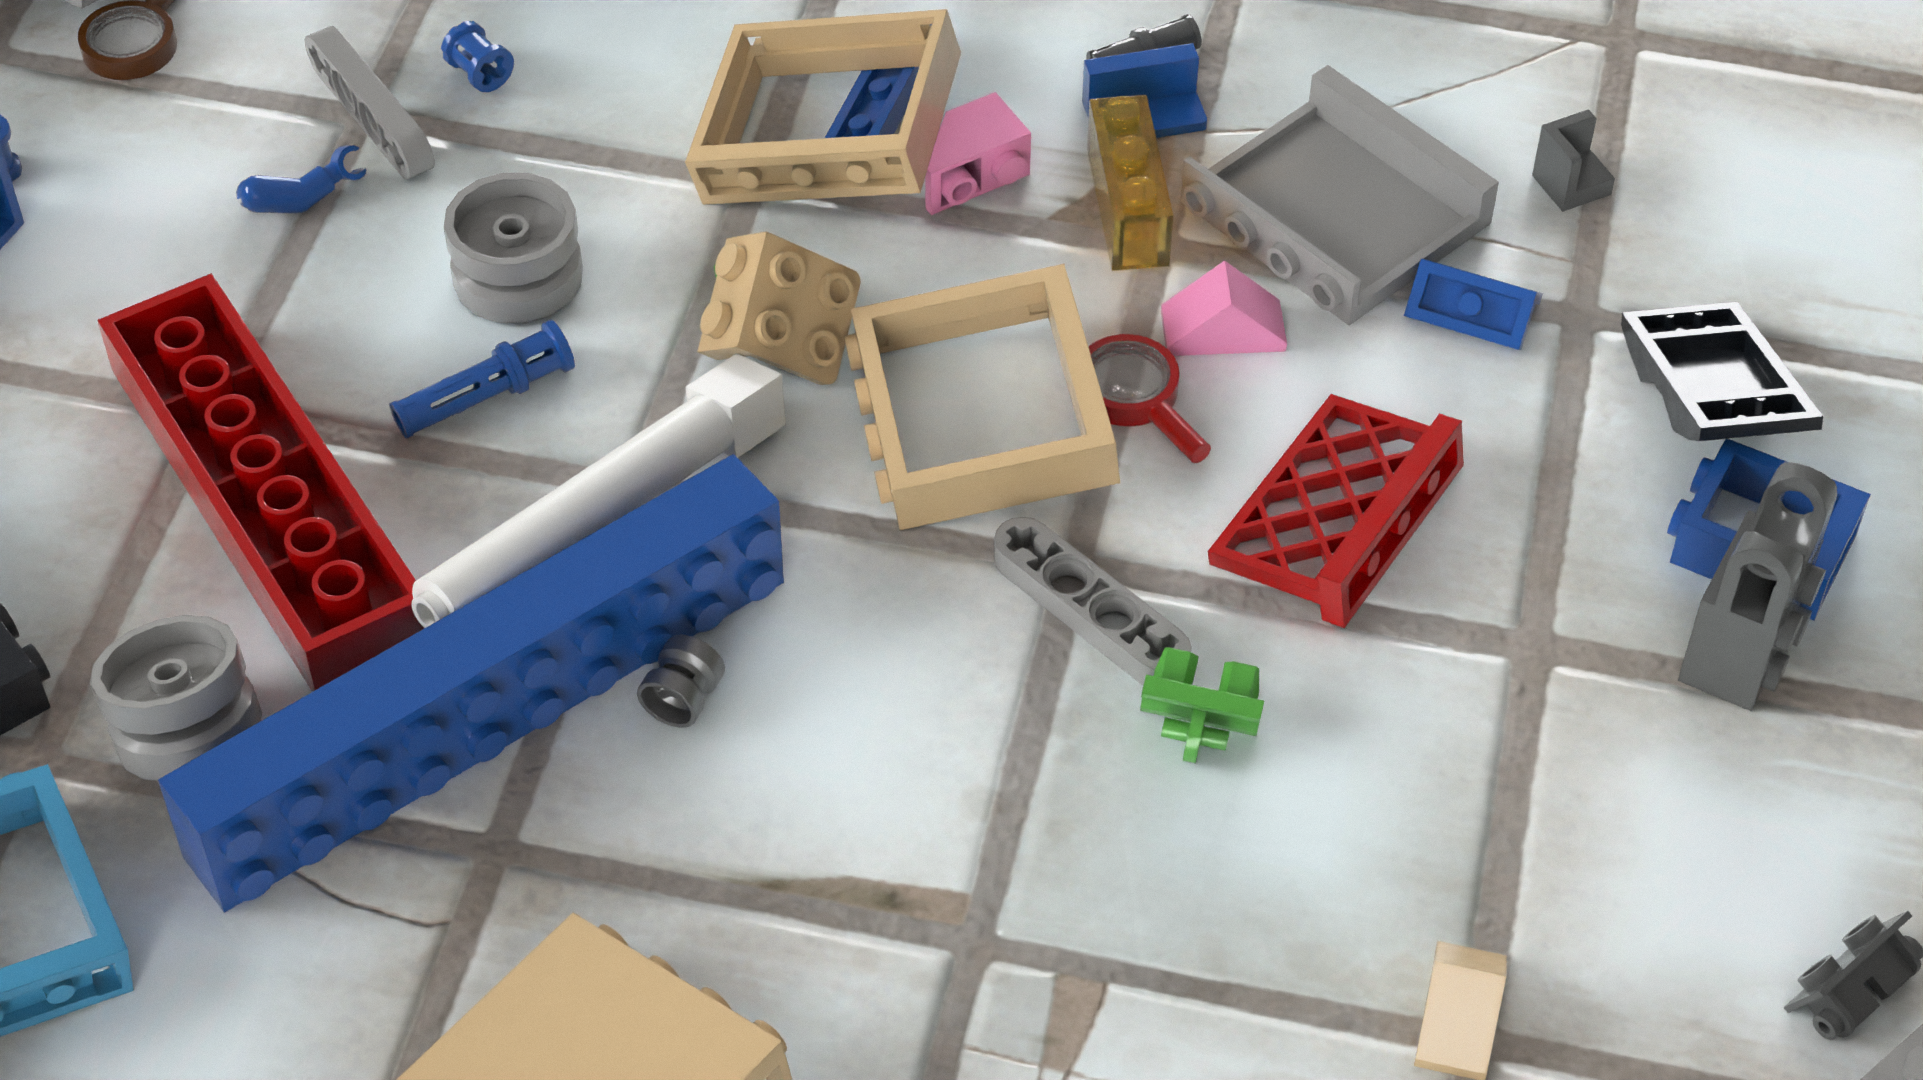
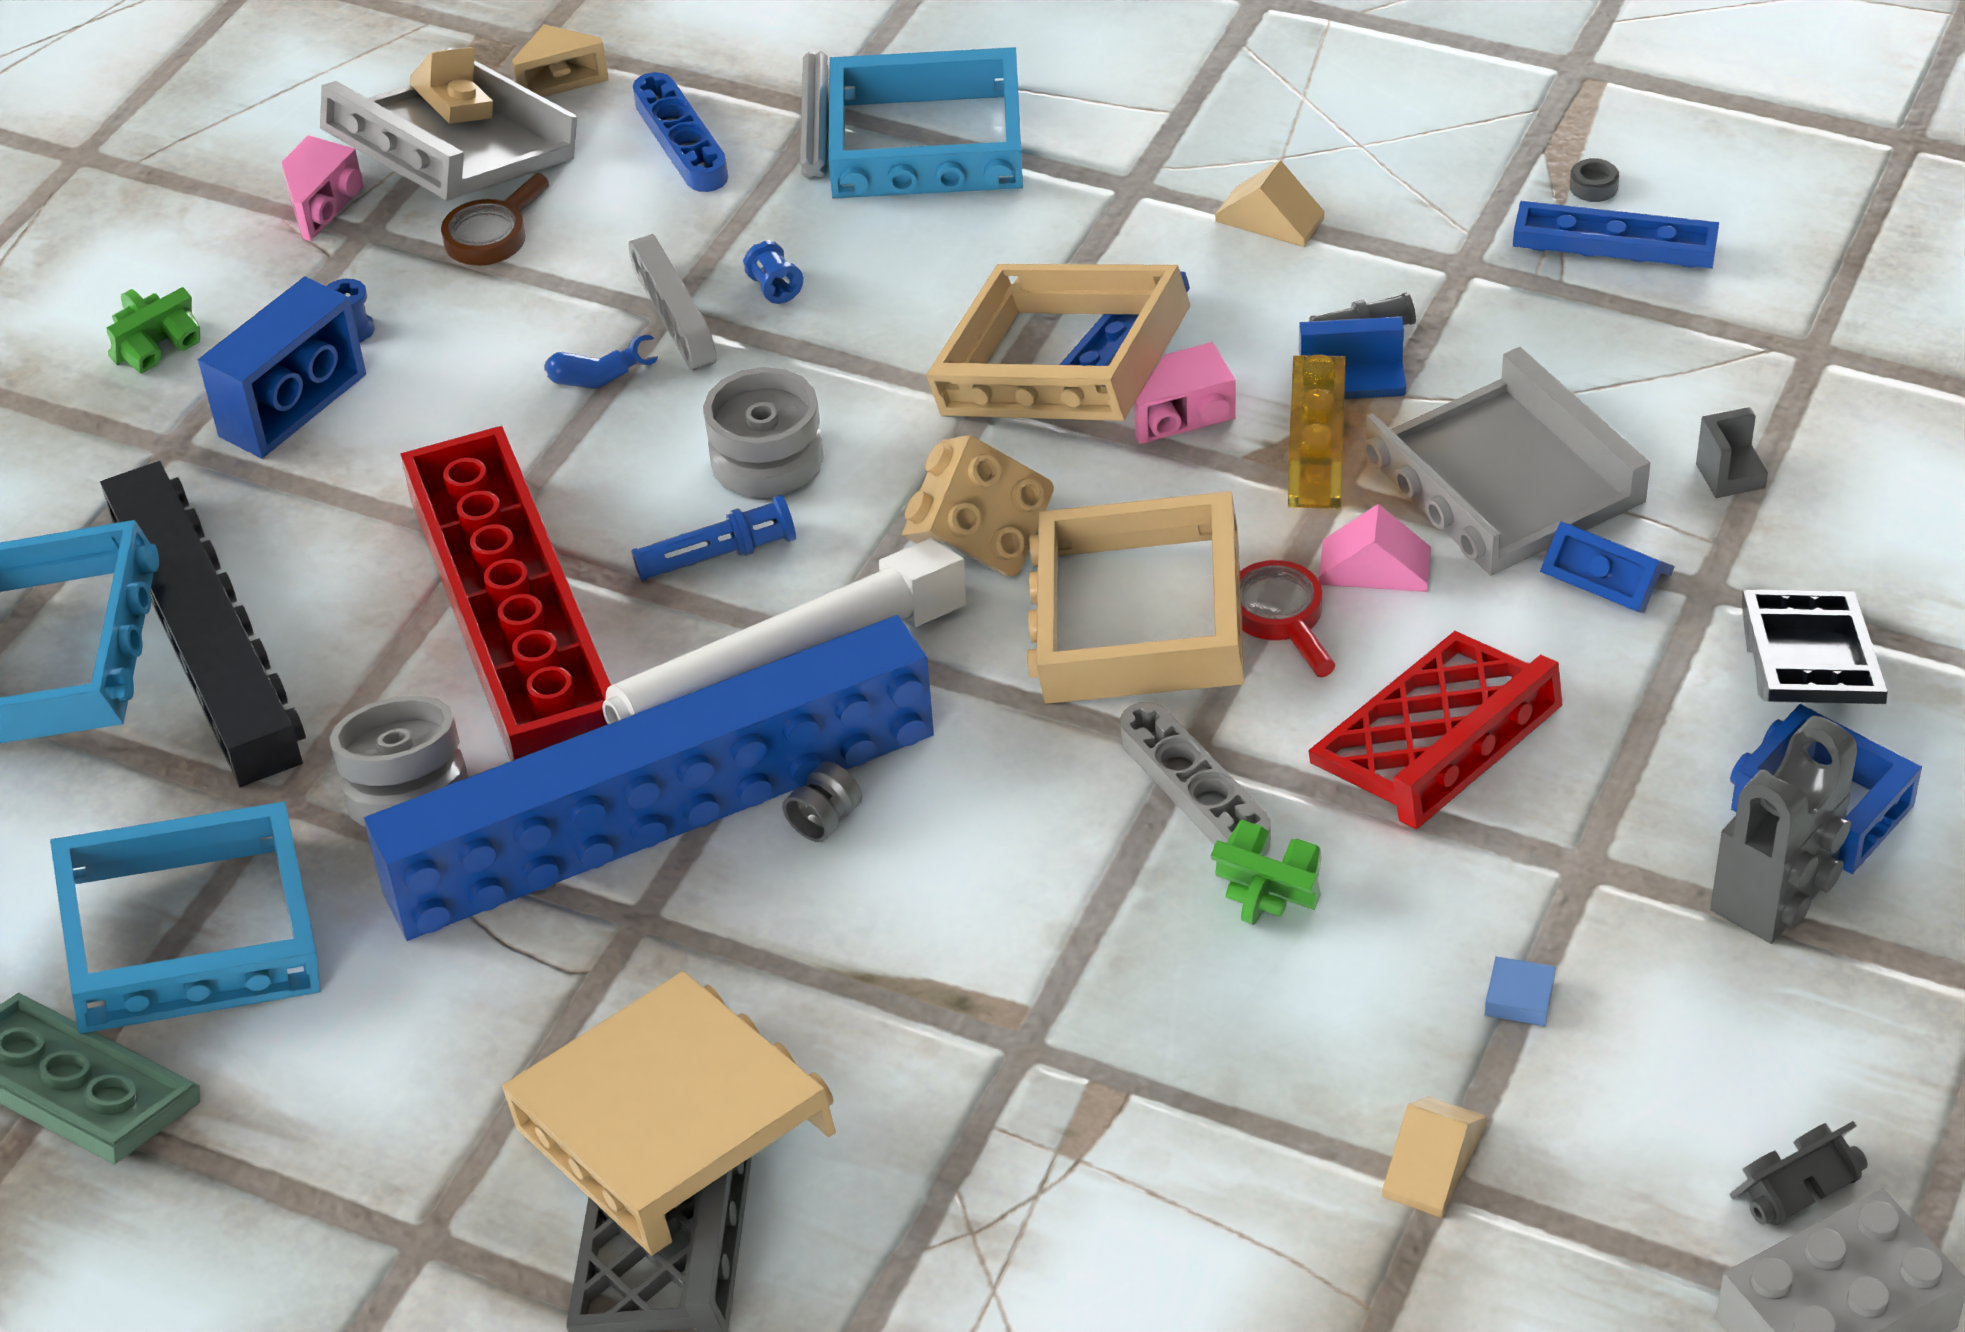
camera: 15 degrees right, 5 degrees down
(1505, 803) = (1520, 991): none -> medium blue tile

